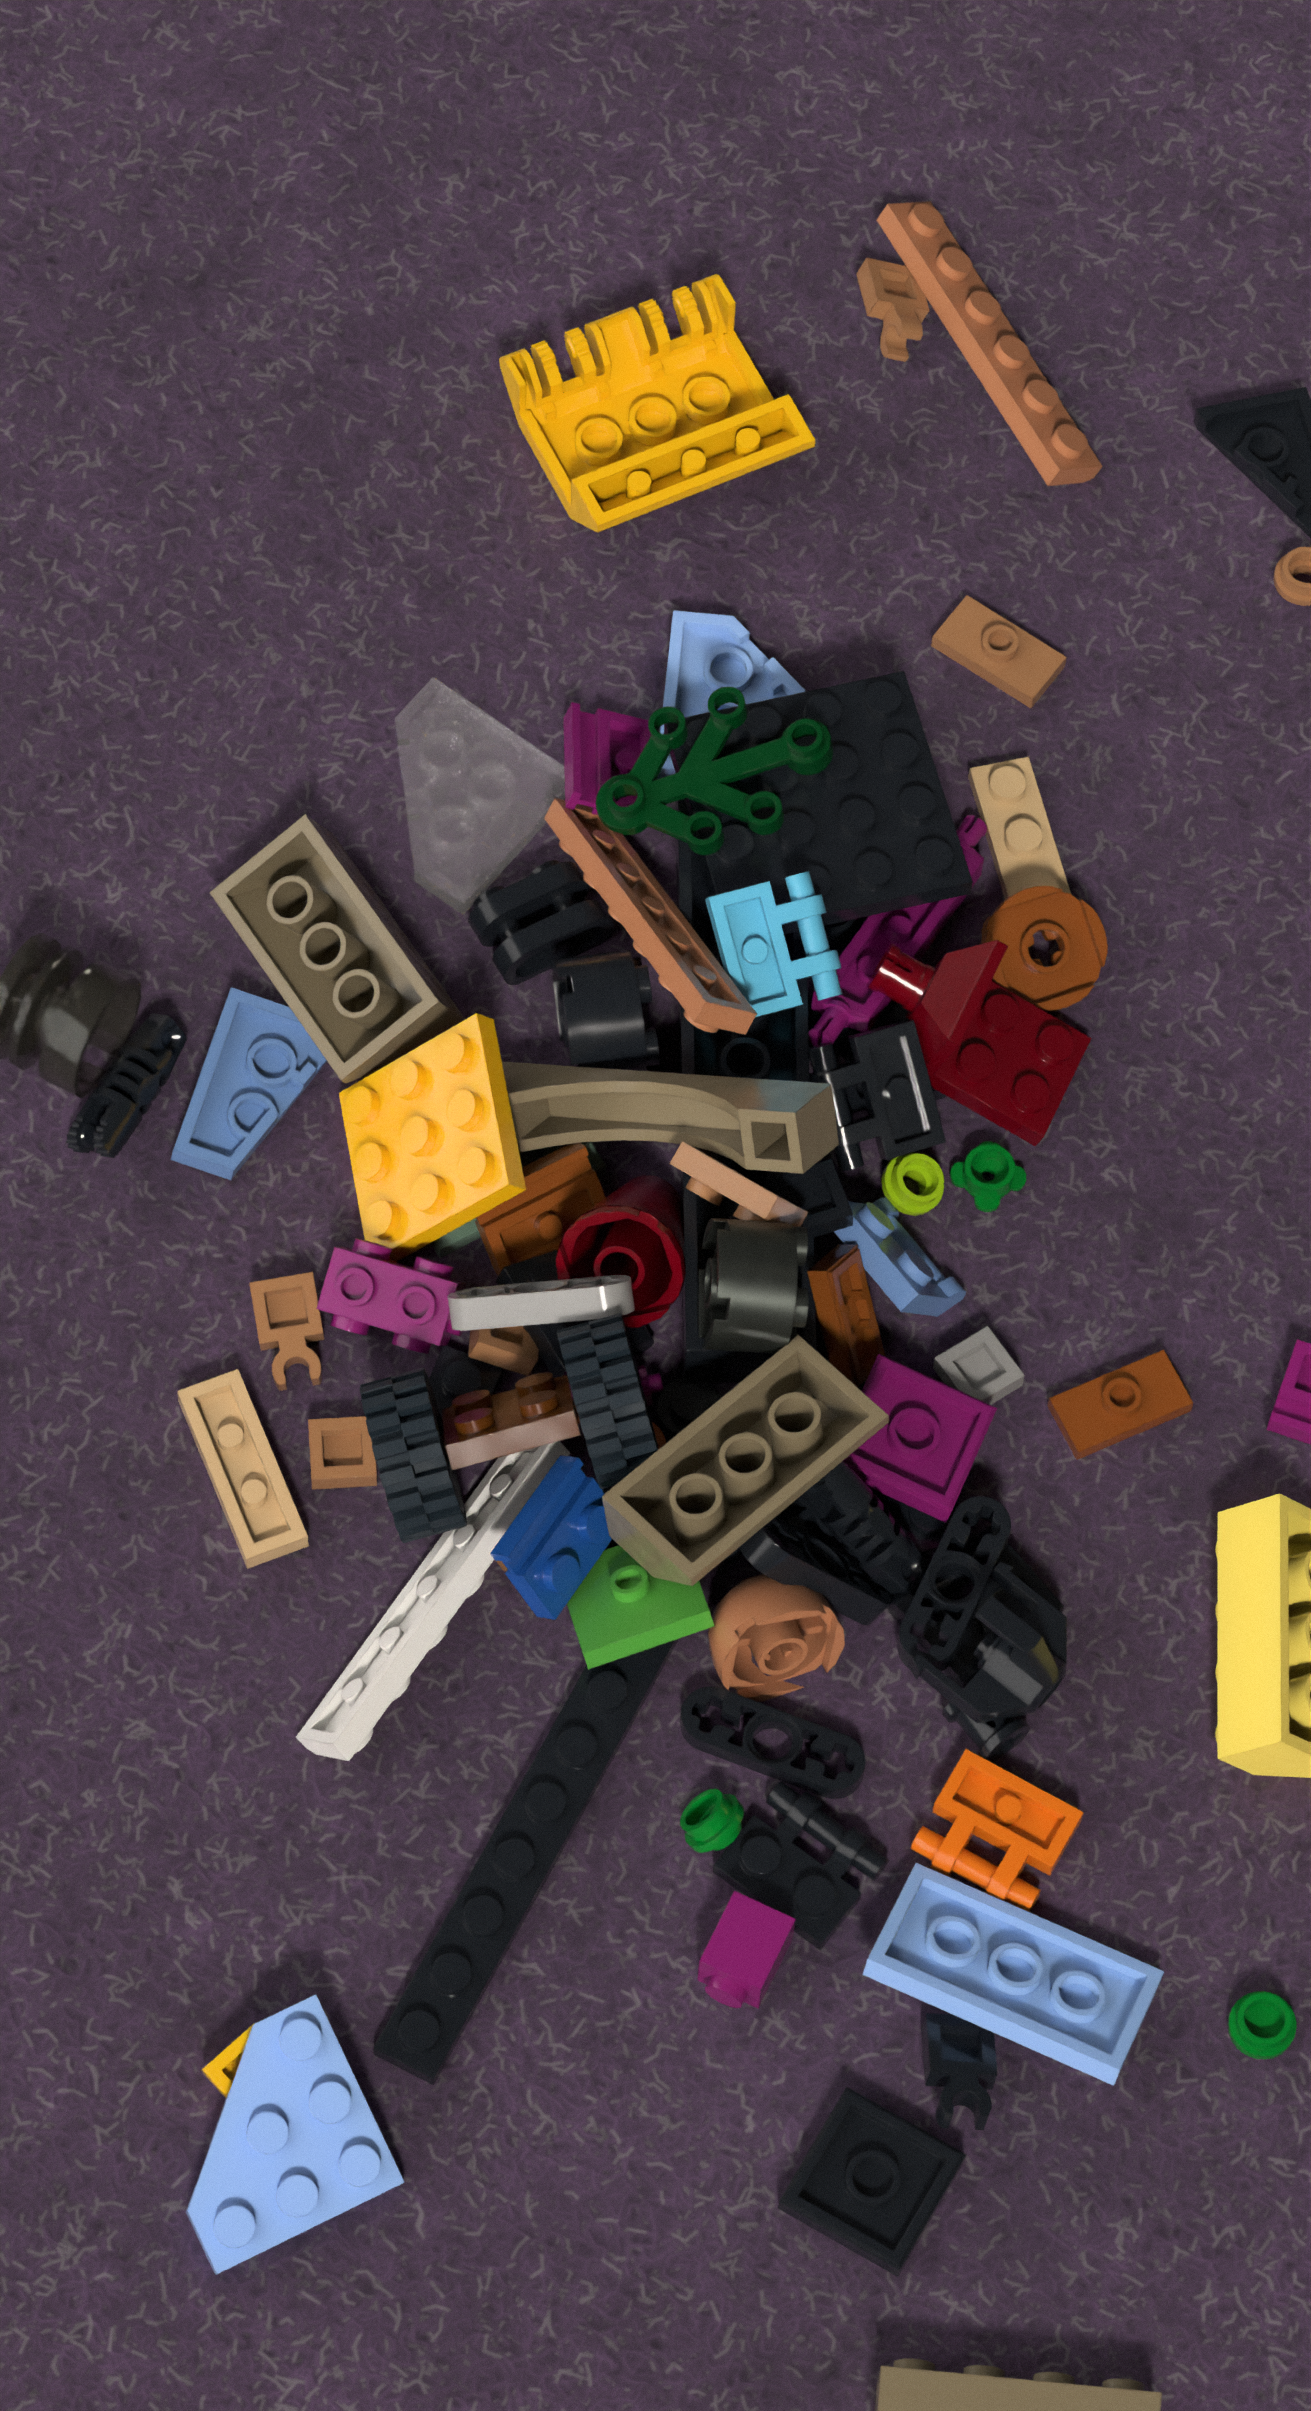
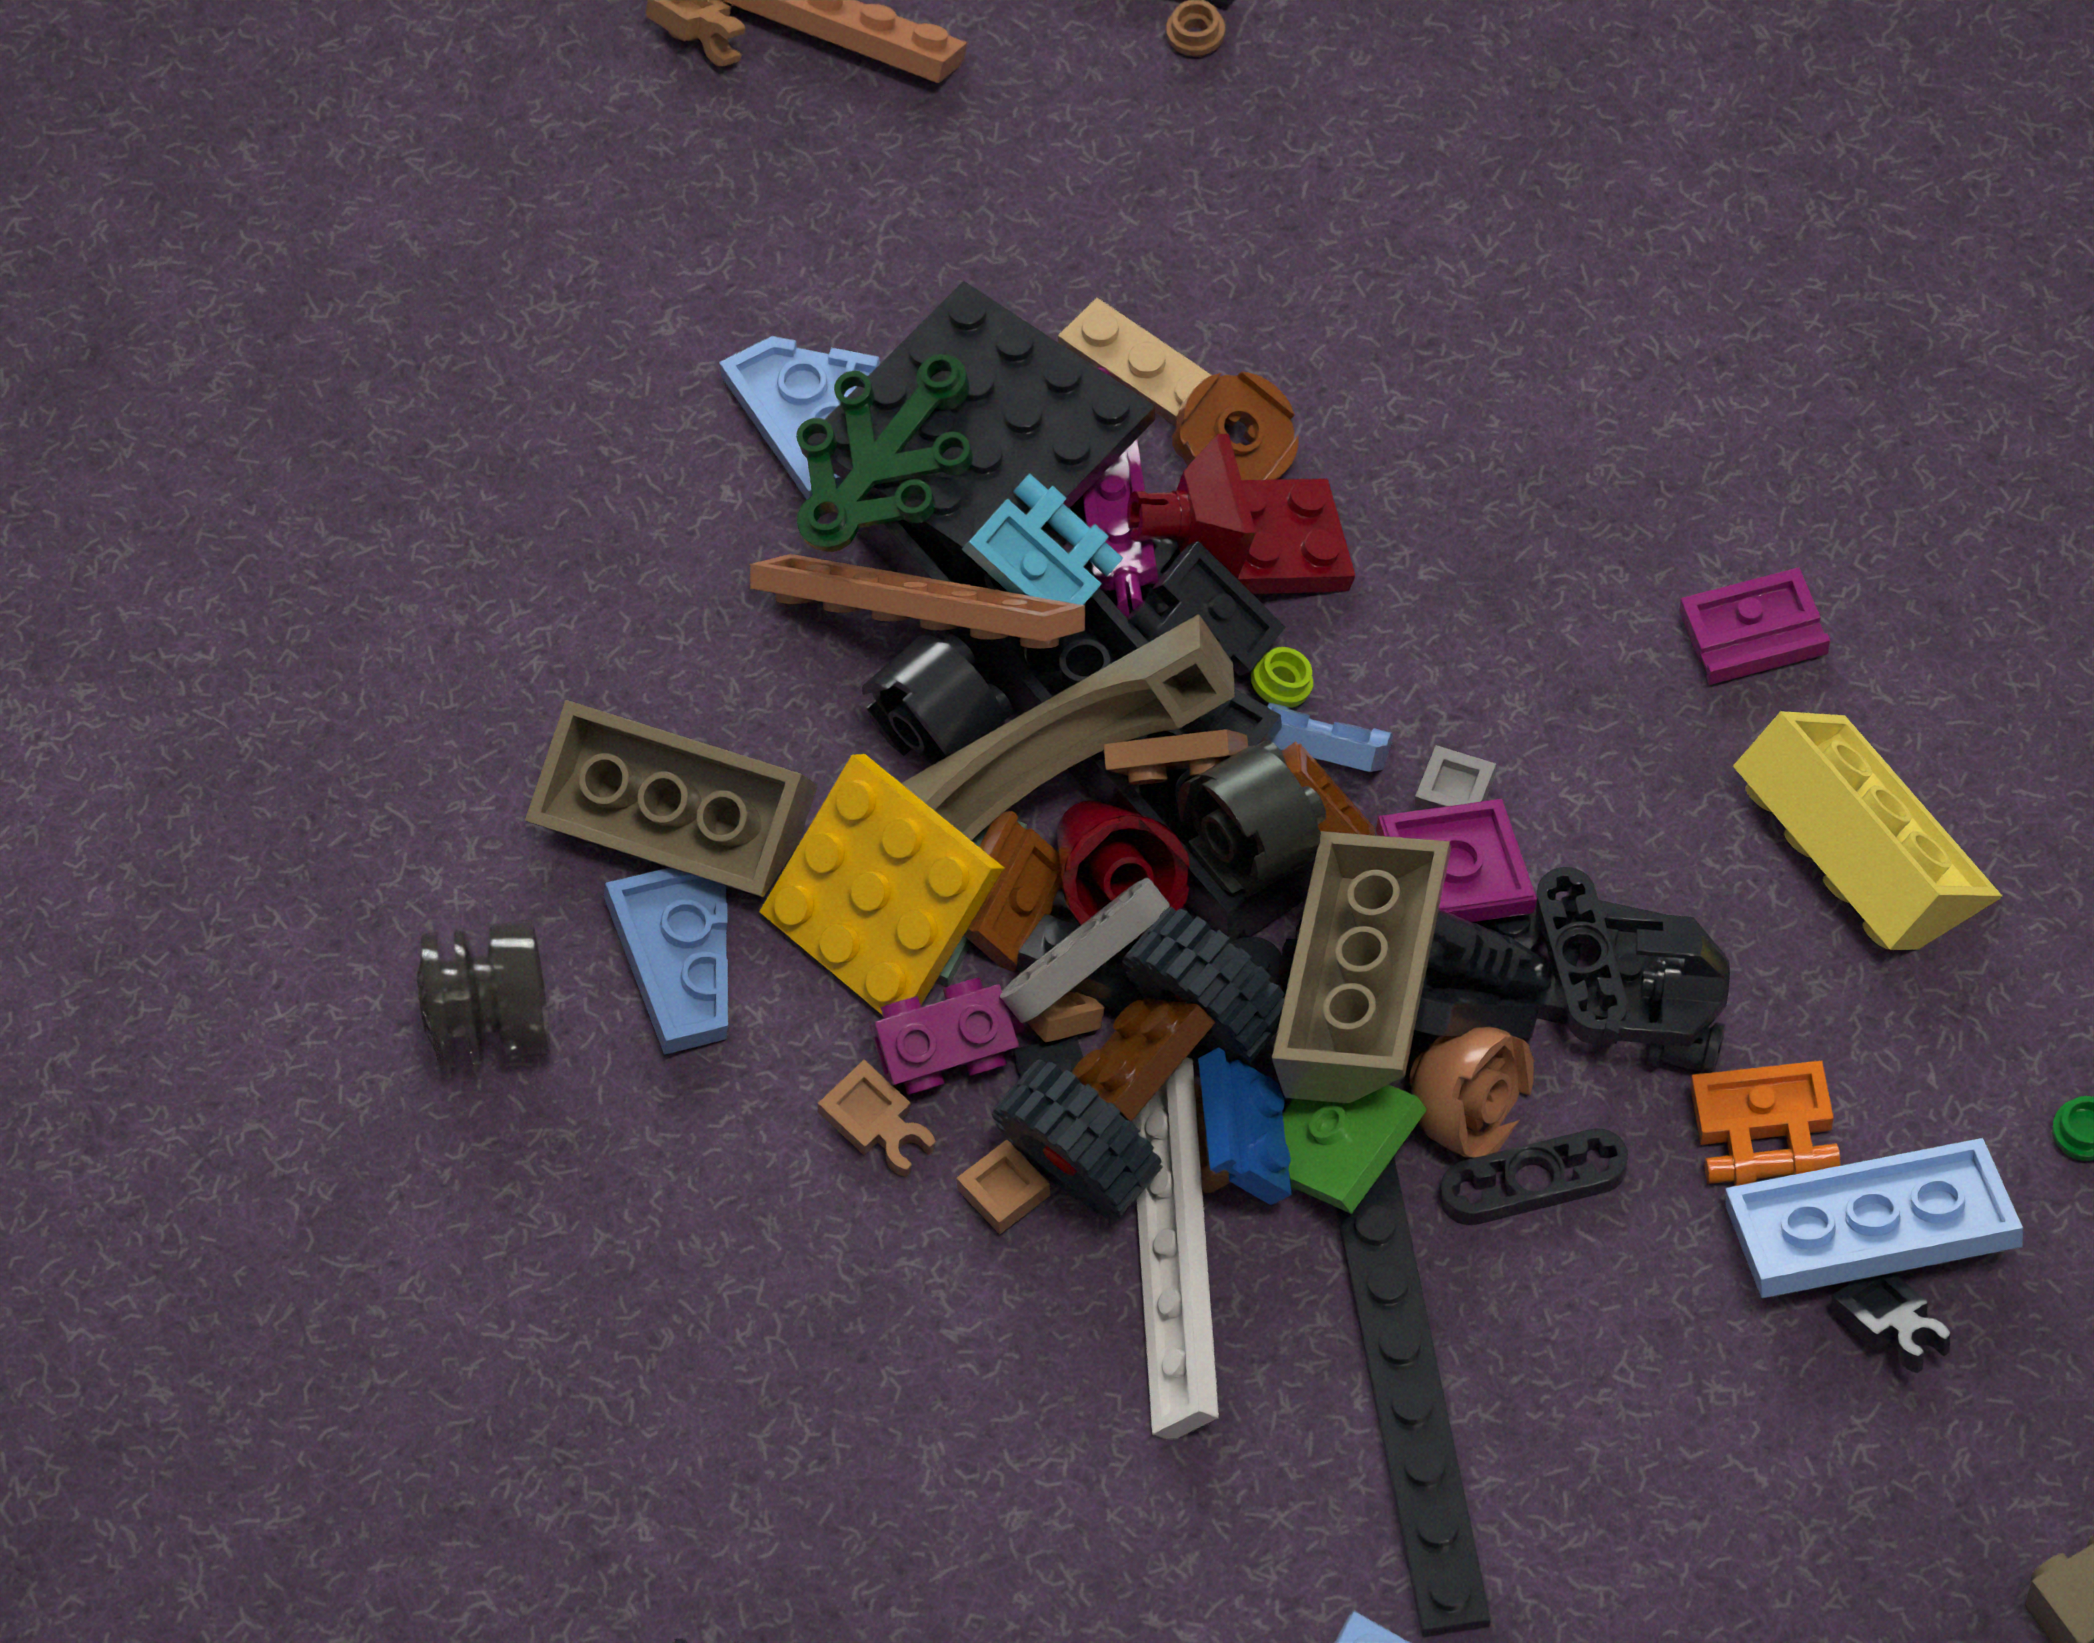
camera: 30 degrees left, 5 degrees down
(128, 1088) = (582, 1020): black hinge -> none
(242, 1468) = (932, 1254): tan plate -> none
(468, 793) = (668, 609): clear plate -> none
(539, 921) = (799, 646): black brick -> none
(597, 750) = (761, 509): magenta plate -> none
(649, 411) = (570, 226): yellow slope -> none
(712, 1821) = (1540, 1266): green plate -> none
(745, 1952) = (1653, 1347): magenta brick -> none
(784, 1877) = (1635, 1273): black plate -> none
(872, 2181) = (1896, 1454): black plate -> none
(993, 1159) = (1334, 619): green plate -> none
(998, 651) = (1003, 234): medium nougat plate -> none
(1120, 1404) = (1582, 740): dark orange plate -> none

